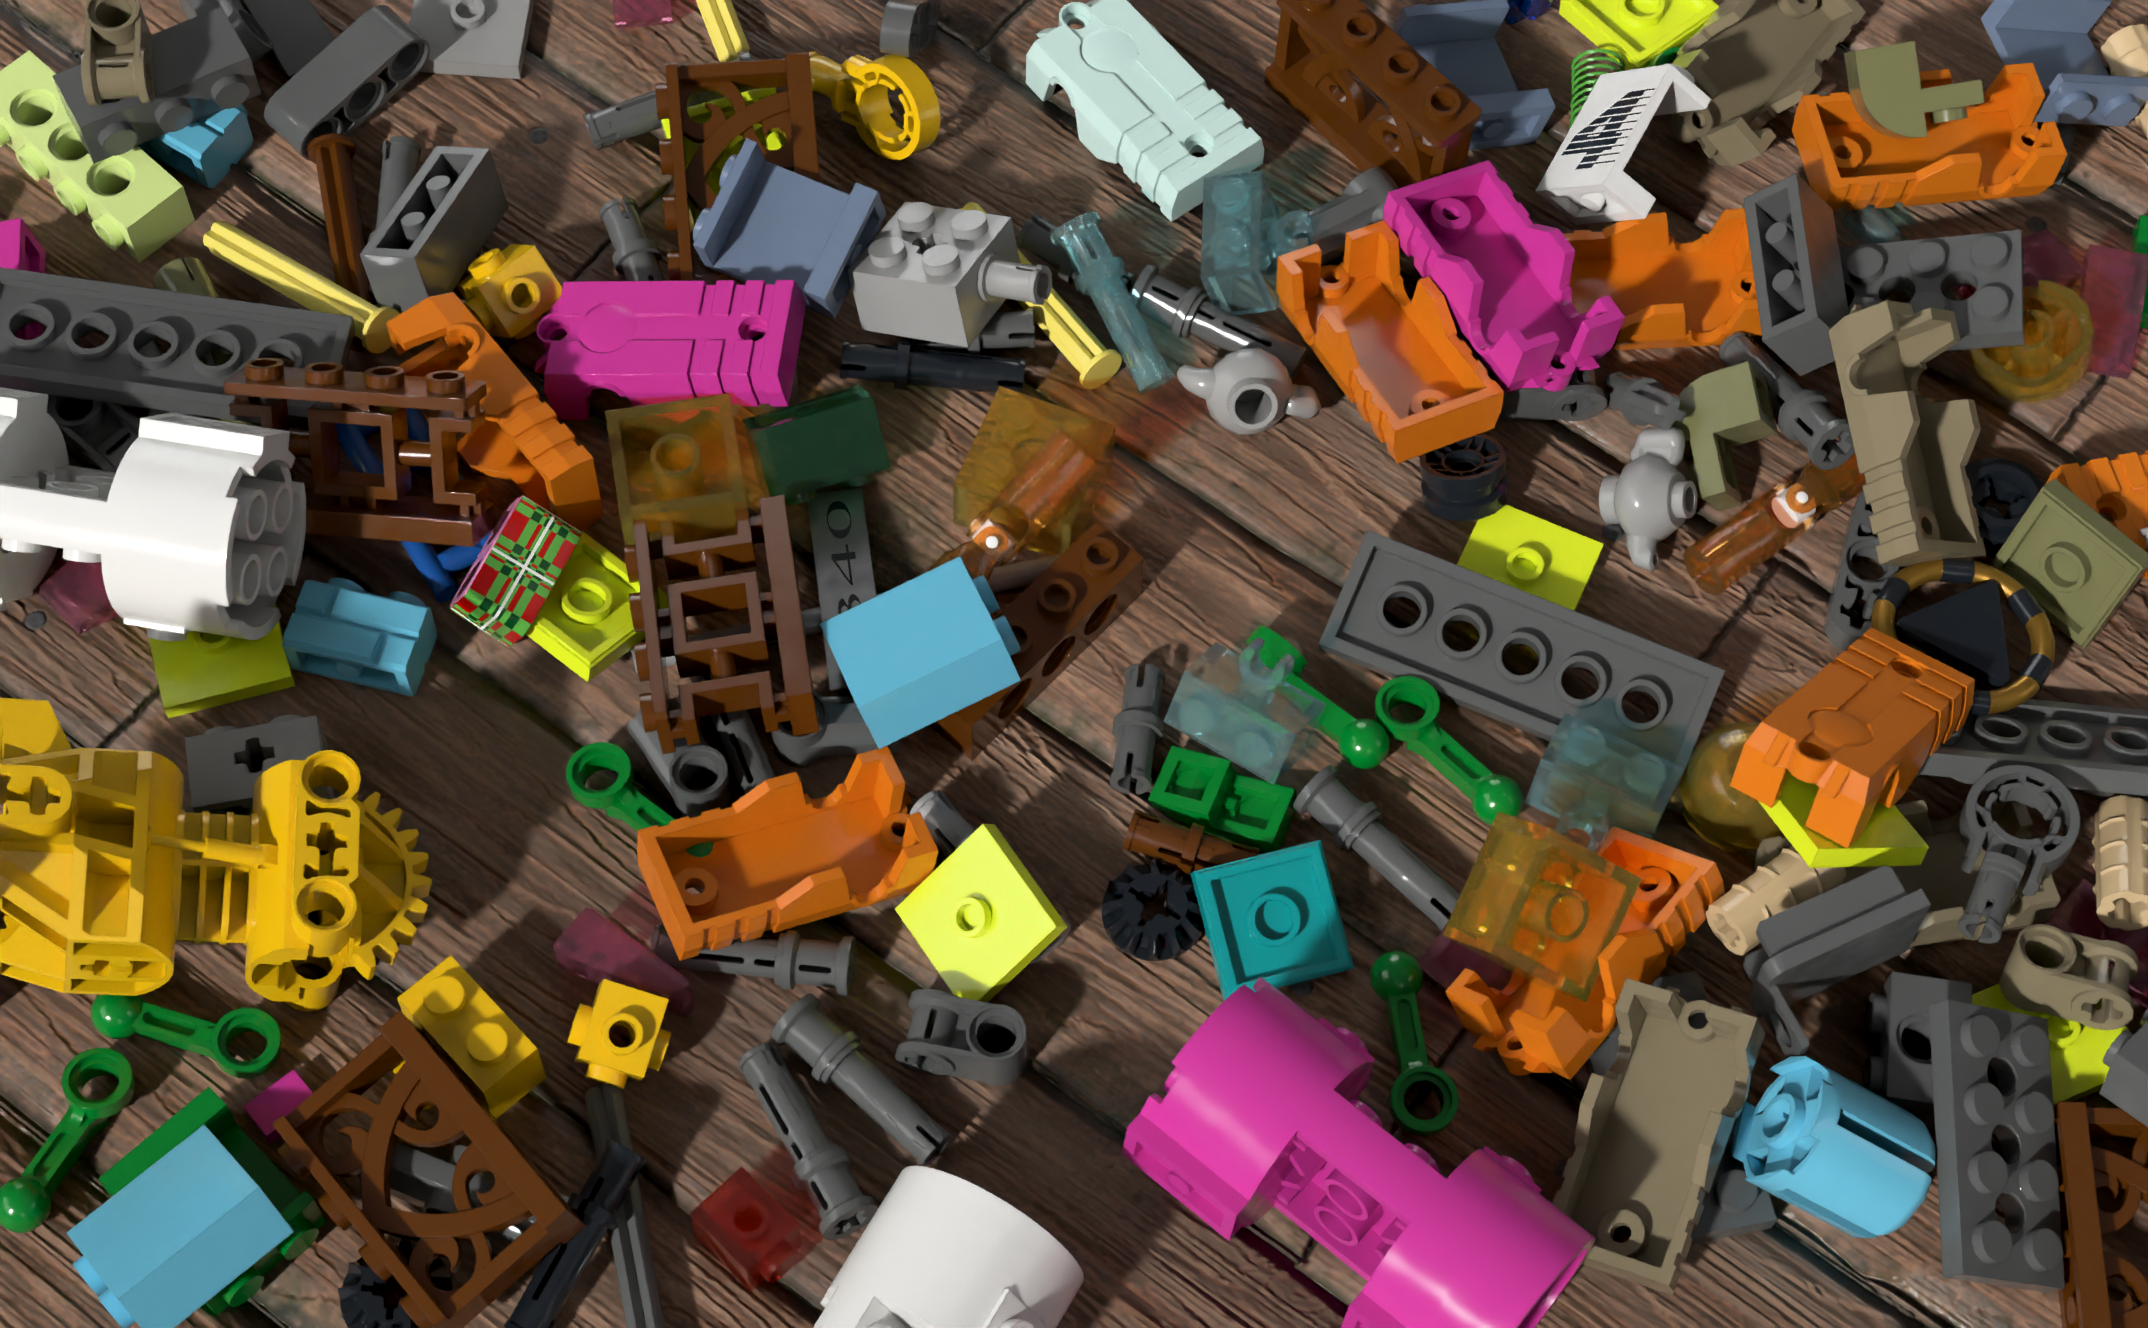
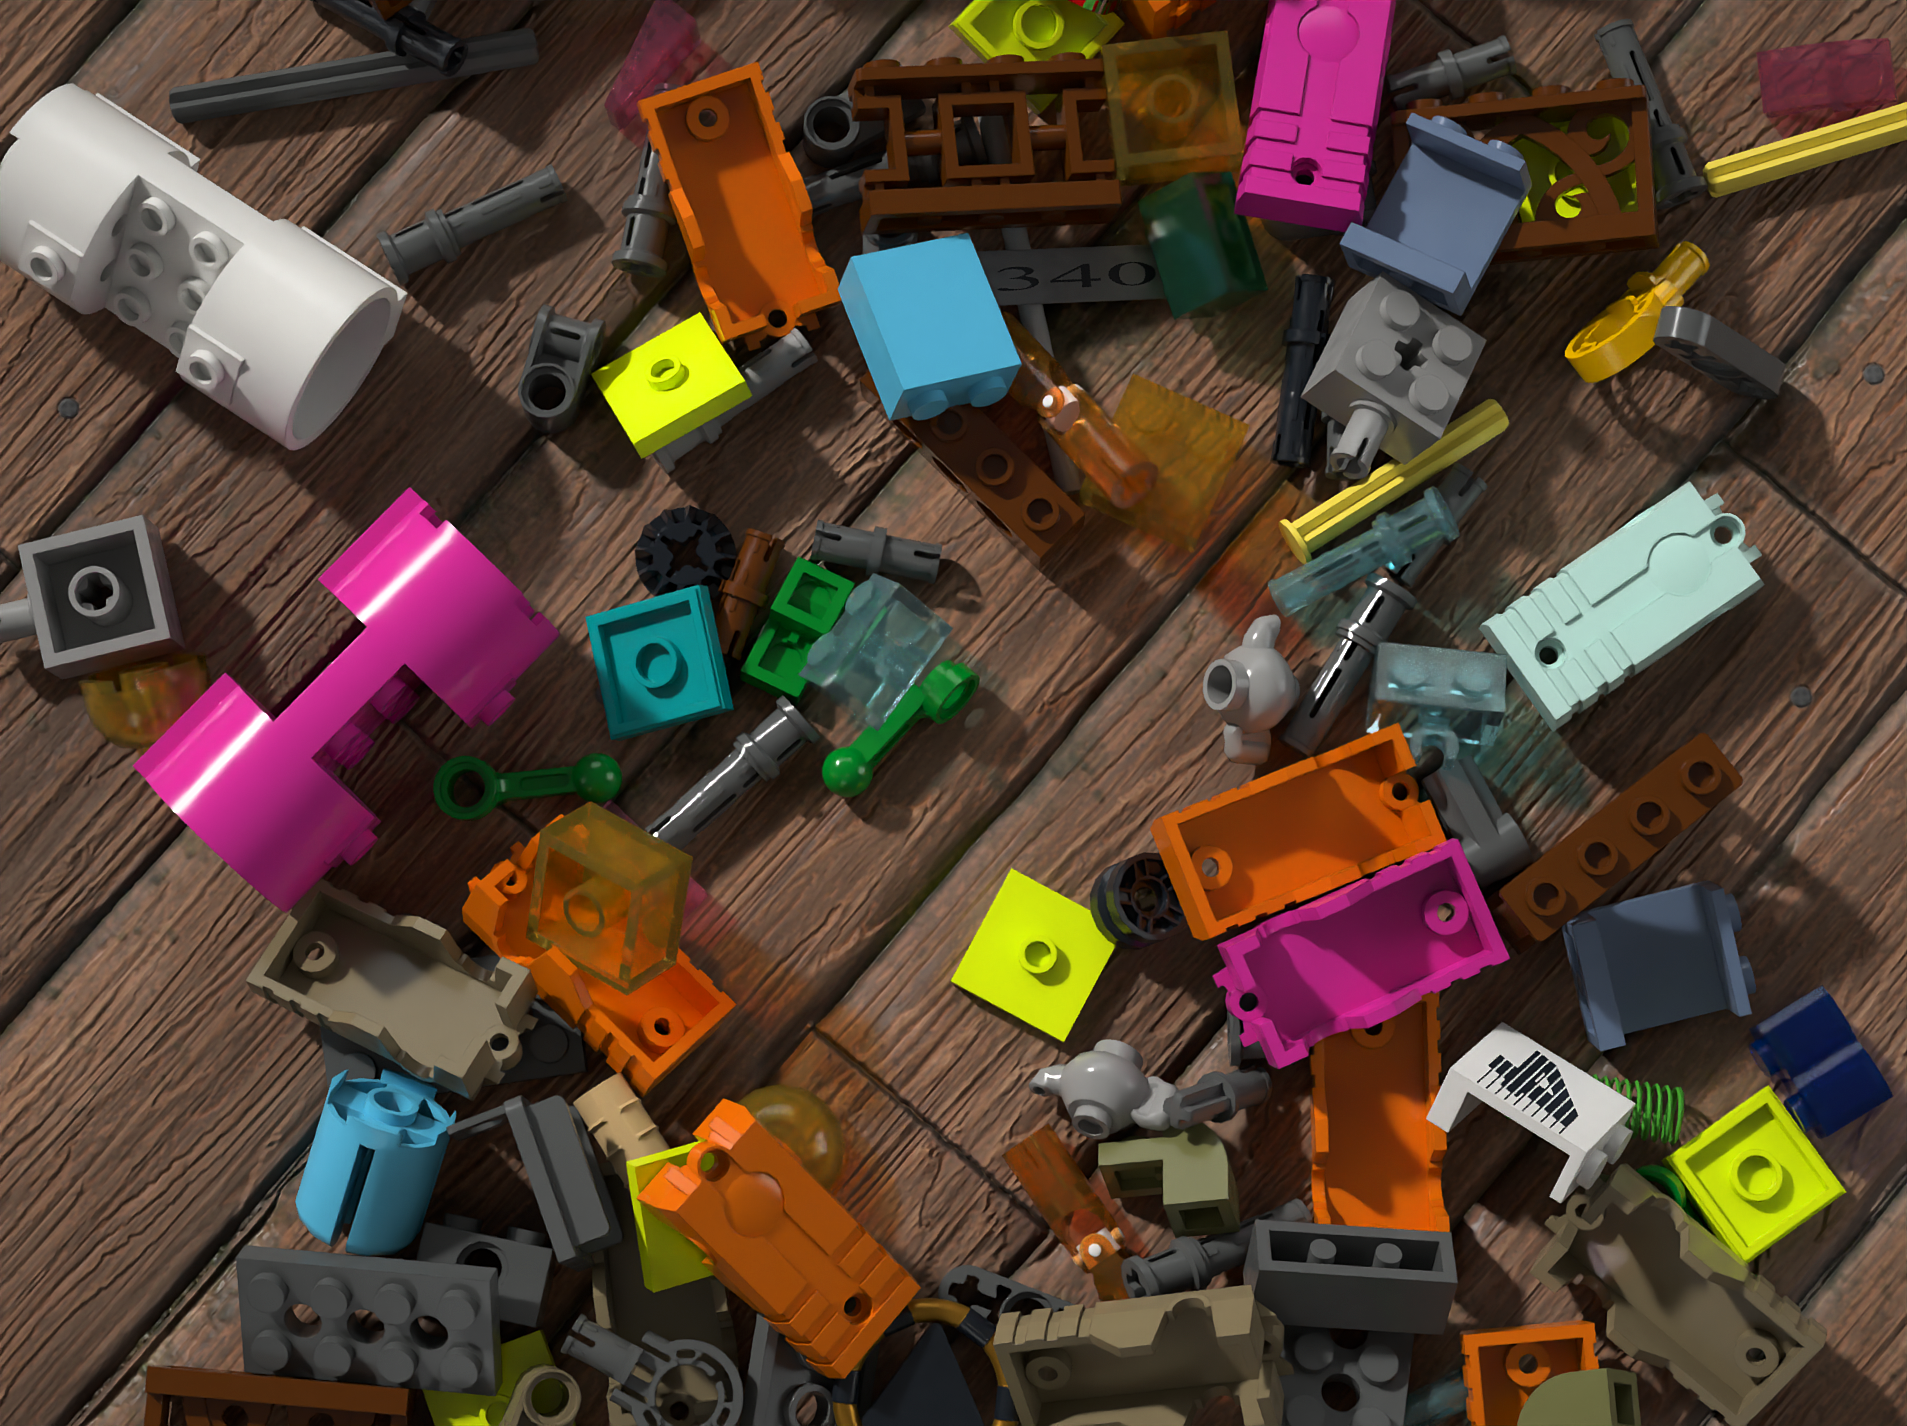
camera: 100 degrees right, 20 degrees up
(621, 798) = (825, 67): green piece -> none
(638, 1015) = (575, 53): yellow brick -> none
(747, 1230) = (384, 169): clear red brick -> none
(840, 1060) = (547, 254): dark grey pin -> none
(1425, 737) = (781, 894): green piece -> none
(1506, 618) = (947, 972): dark grey plate -> none
(1601, 783) = (774, 997): clear light blue brick -> none

